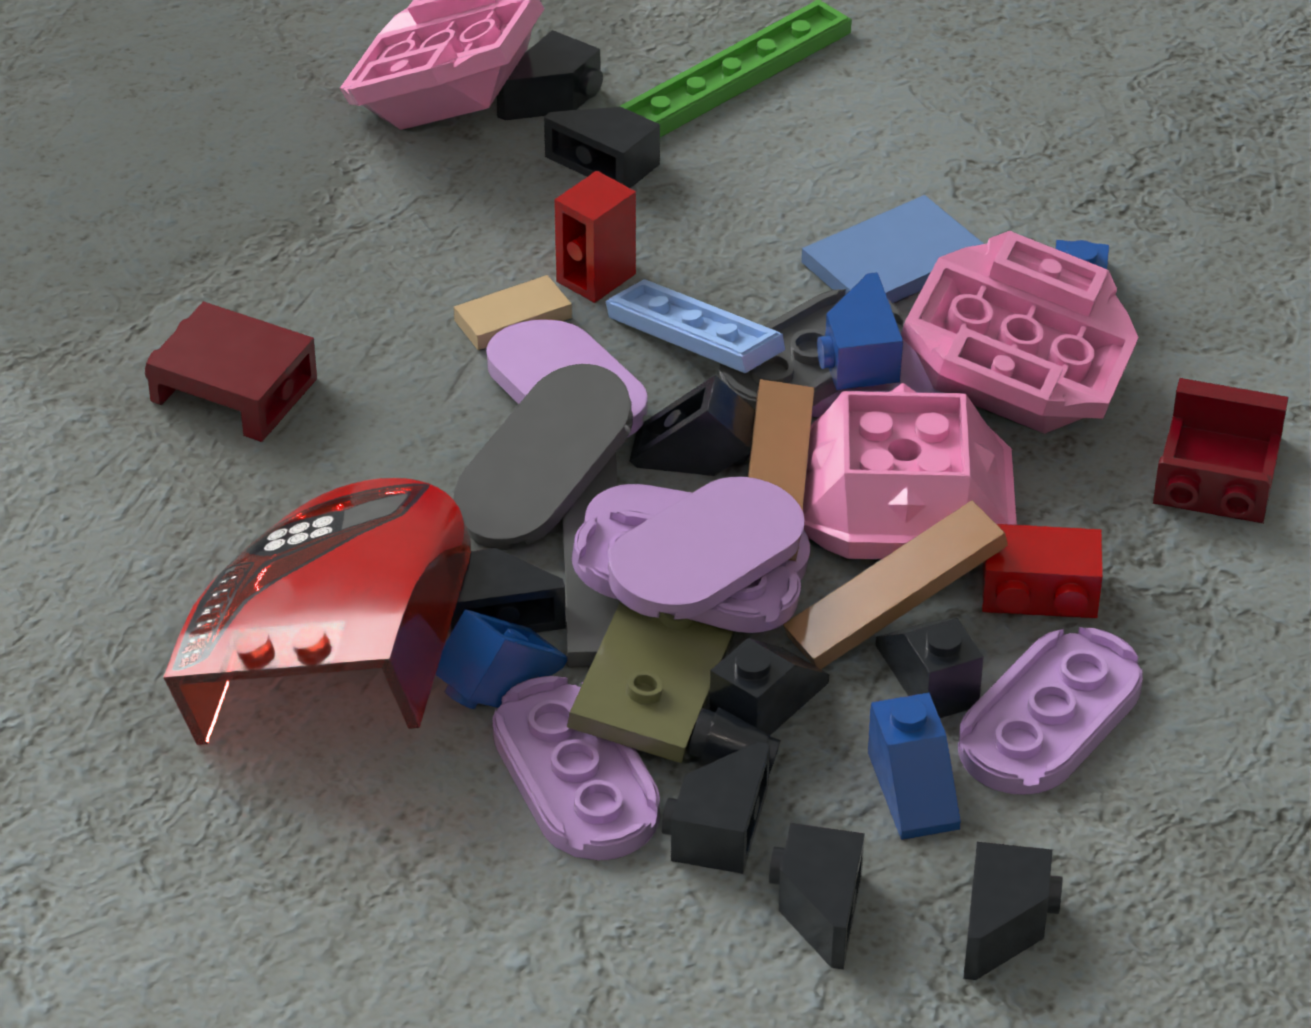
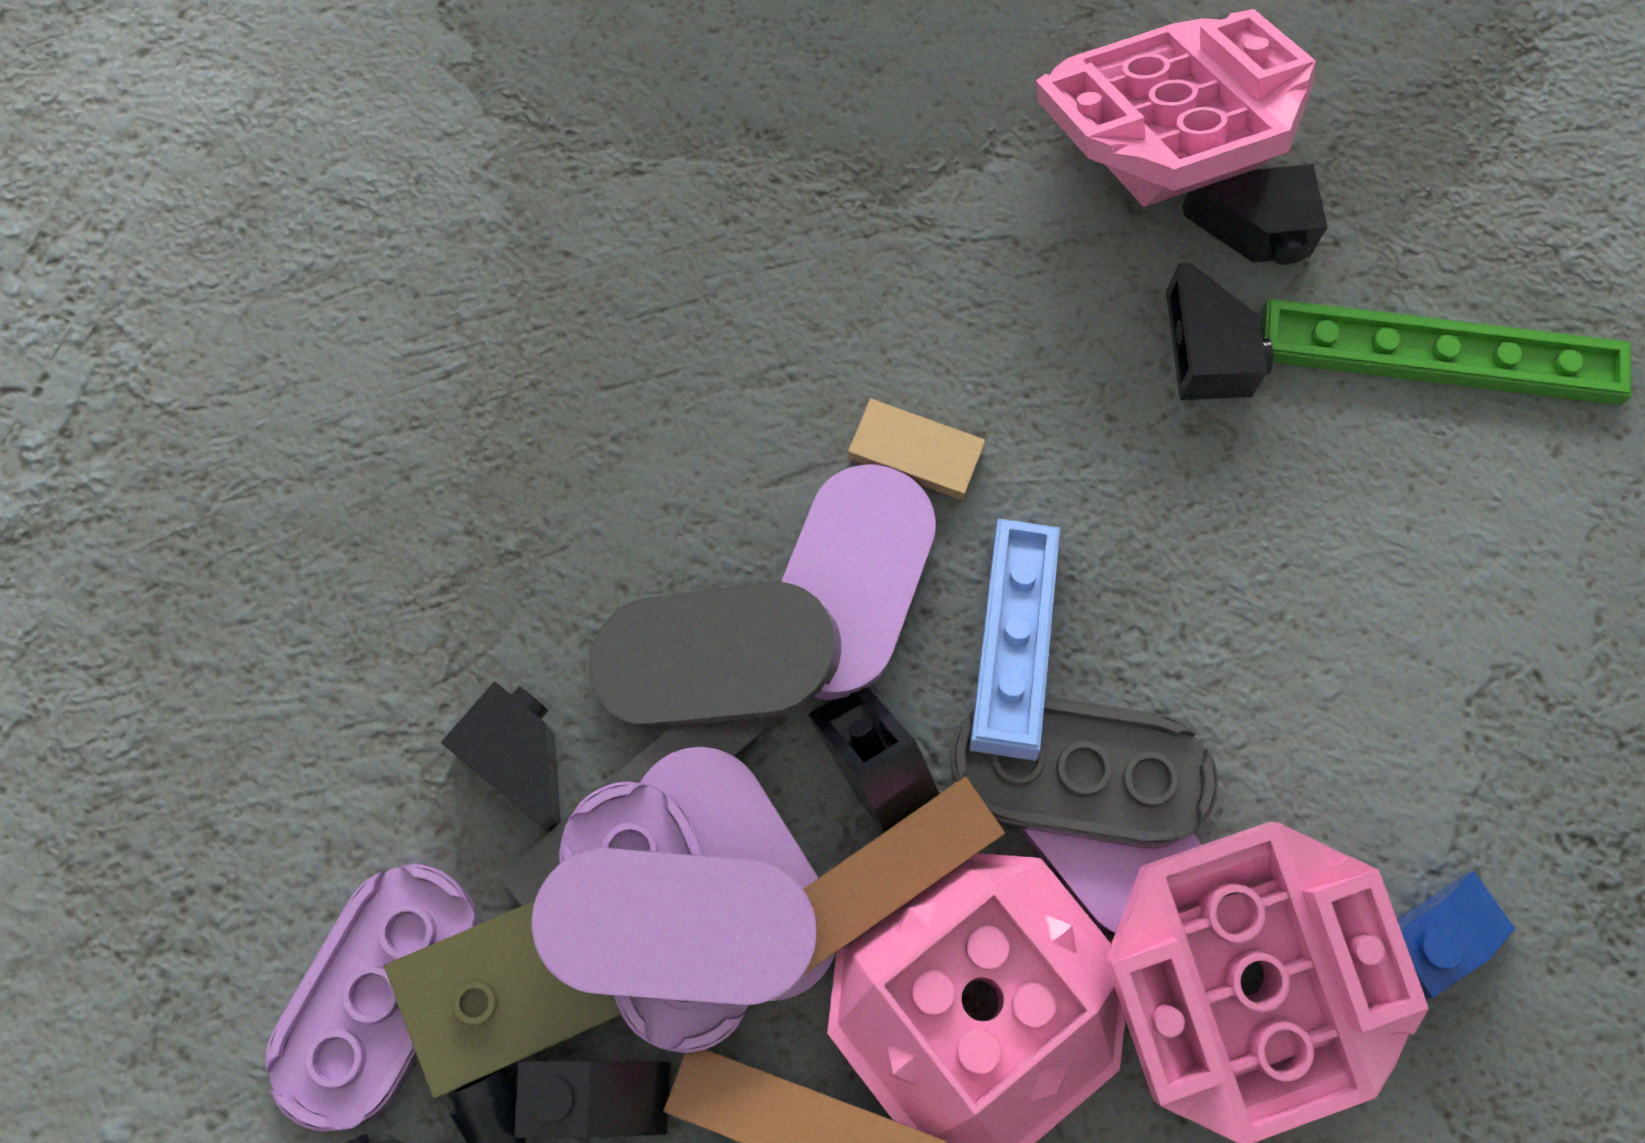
camera: 50 degrees right, 30 degrees up
(236, 365) = (620, 295): dark red panel -> none
(329, 589) = (351, 652): windscreen -> none
(491, 657) = (433, 829): blue slope -> none
(595, 236) = (1051, 449): red brick -> none
(862, 338) = (1110, 826): blue slope -> none
(896, 244) = (1316, 722): medium blue tile -> none

